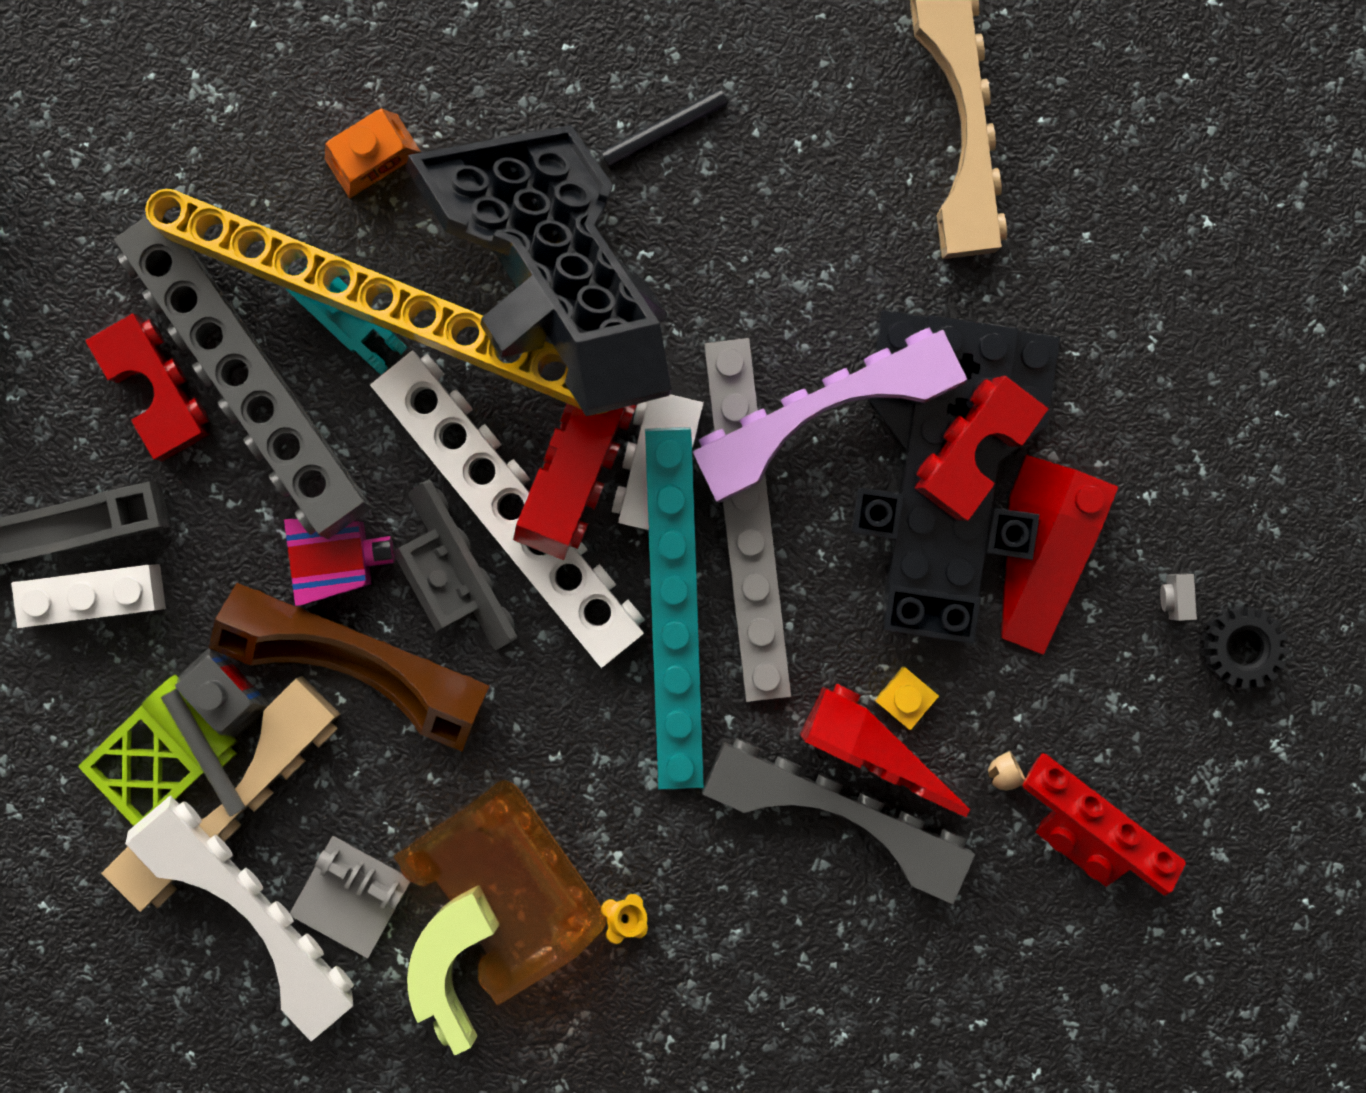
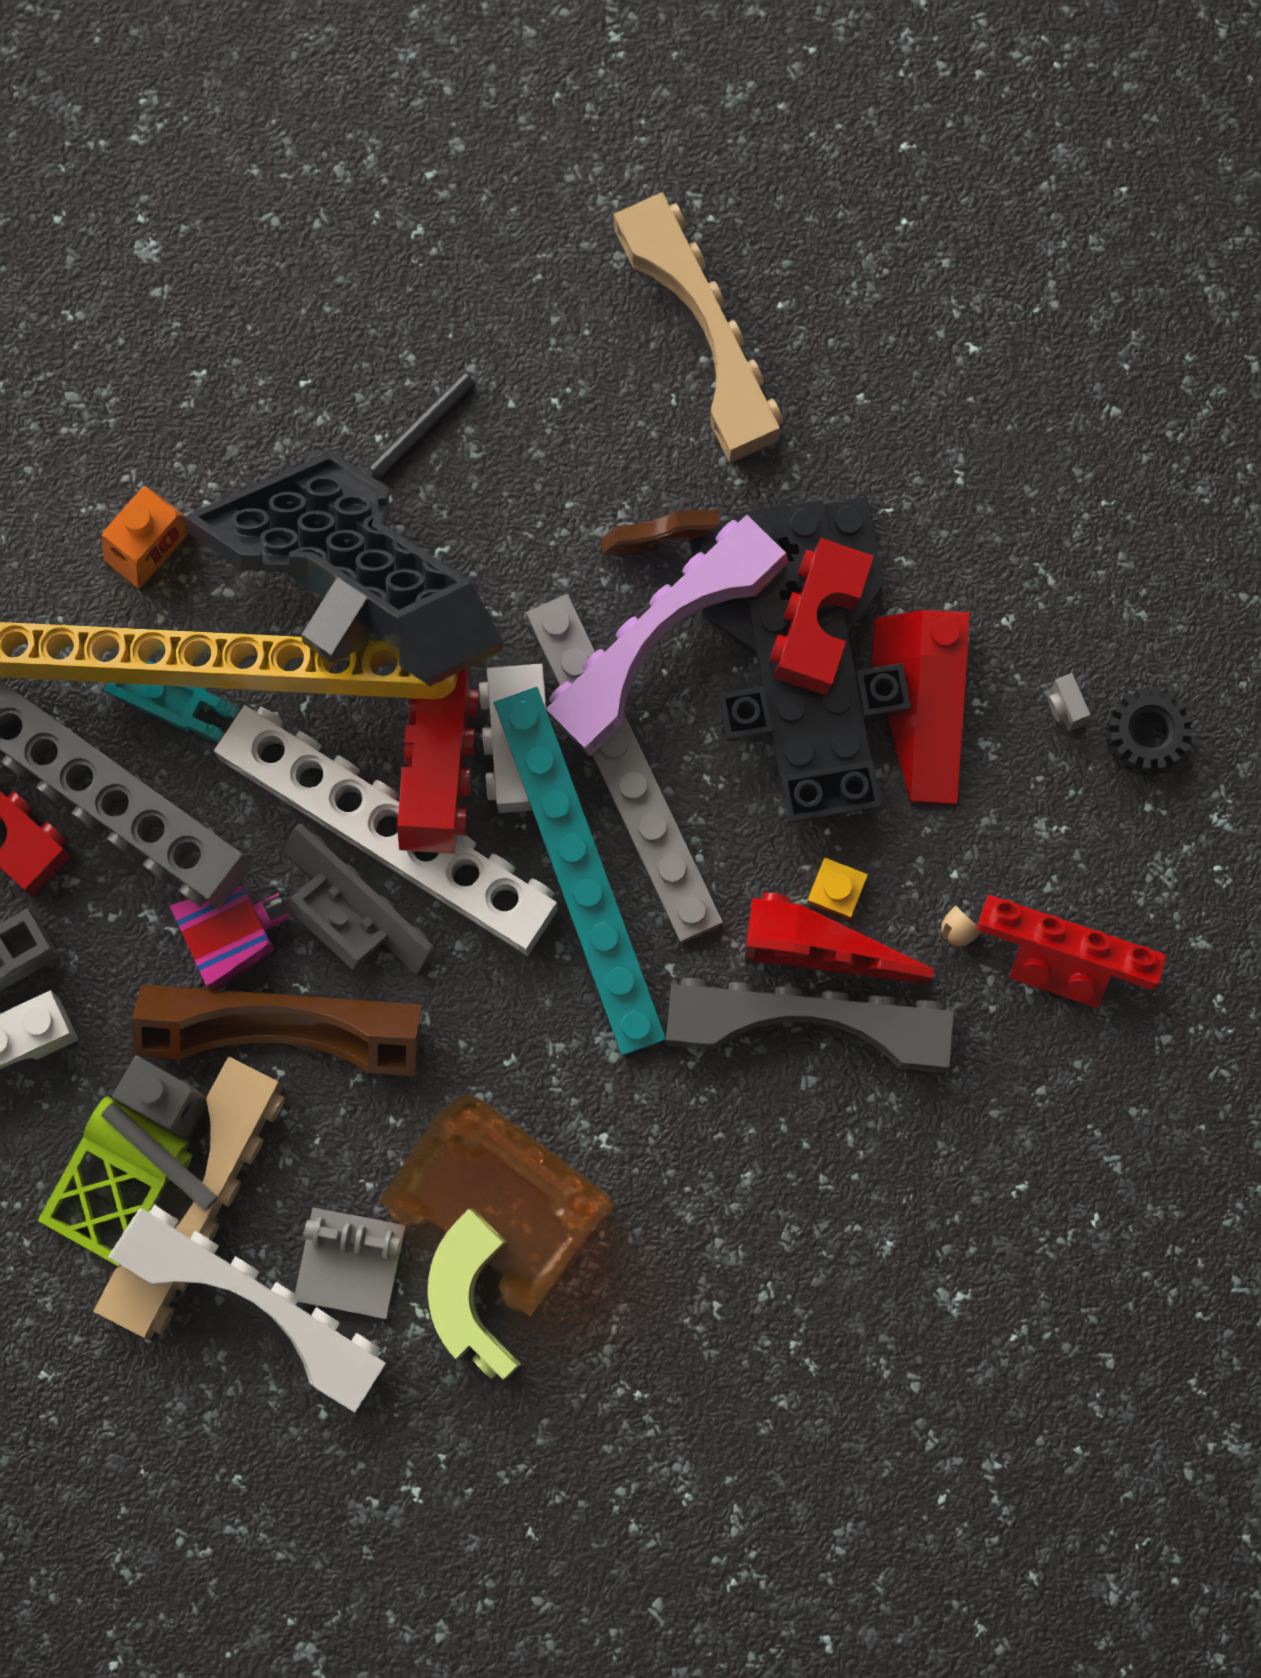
camera: 15 degrees left, 10 degrees down
(637, 918) = (641, 1188): yellow plate -> none
(865, 310) = (645, 536): none -> reddish brown tile

